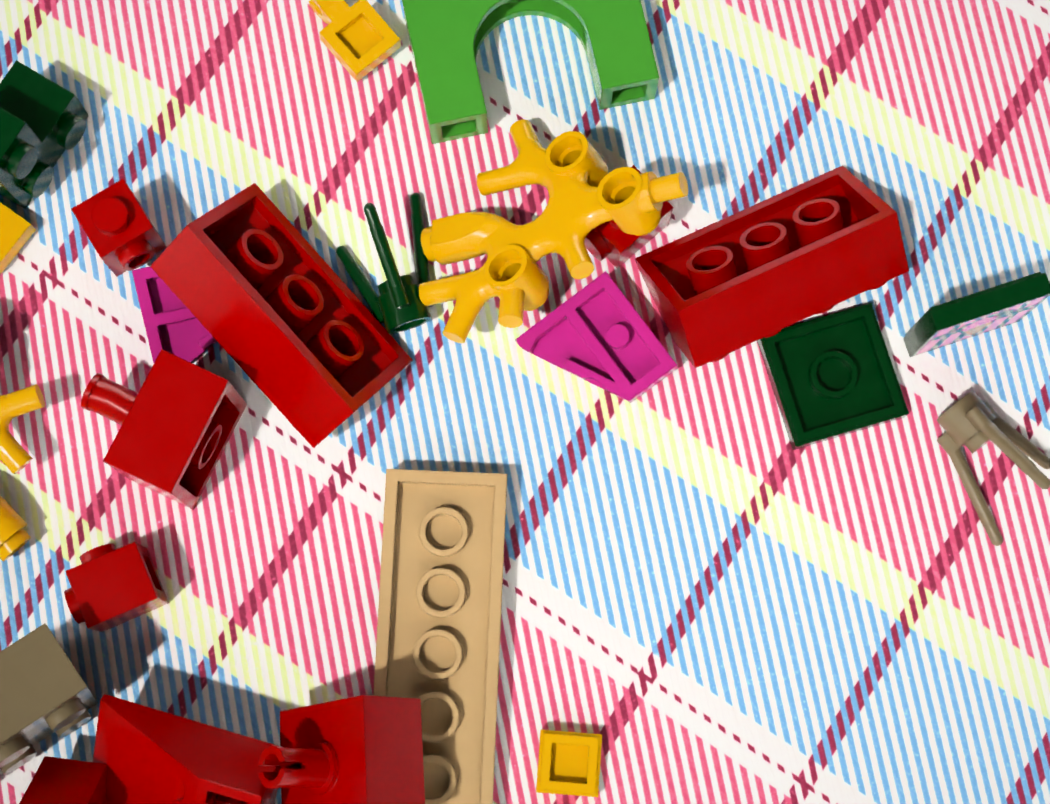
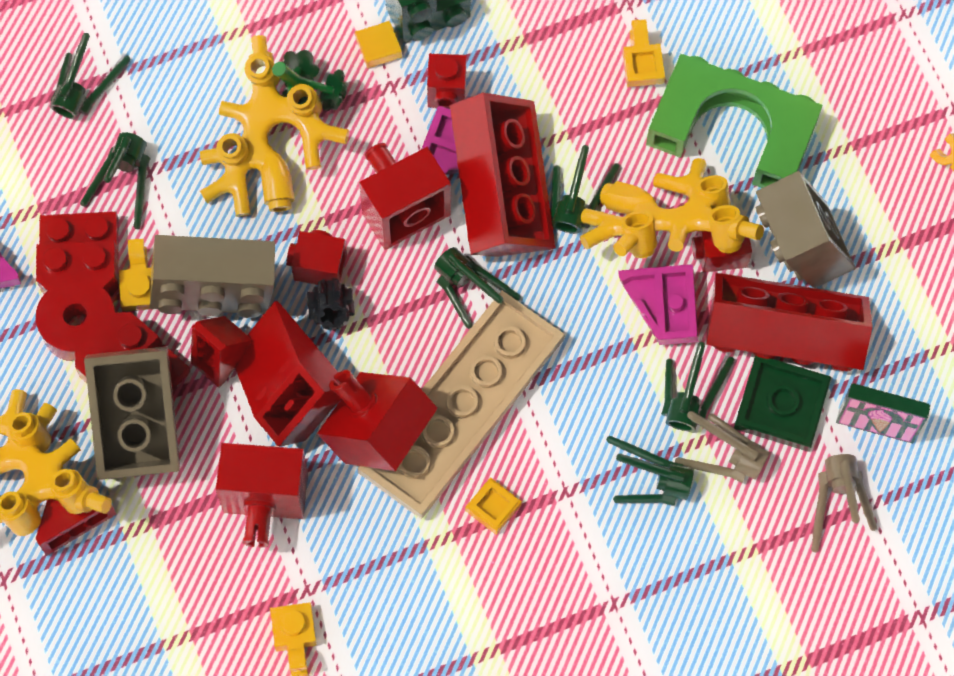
camera: 35 degrees right, 10 degrees down
(175, 640) = (330, 303): none -> black gear
(309, 478) = (458, 271): none -> dark green plant
(723, 469) = (677, 408): none -> dark green plant
(724, 138) = (803, 230): none -> dark tan brick
(770, 576) = (672, 476): none -> dark green plant
(838, 481) = (747, 456): none -> dark tan plant

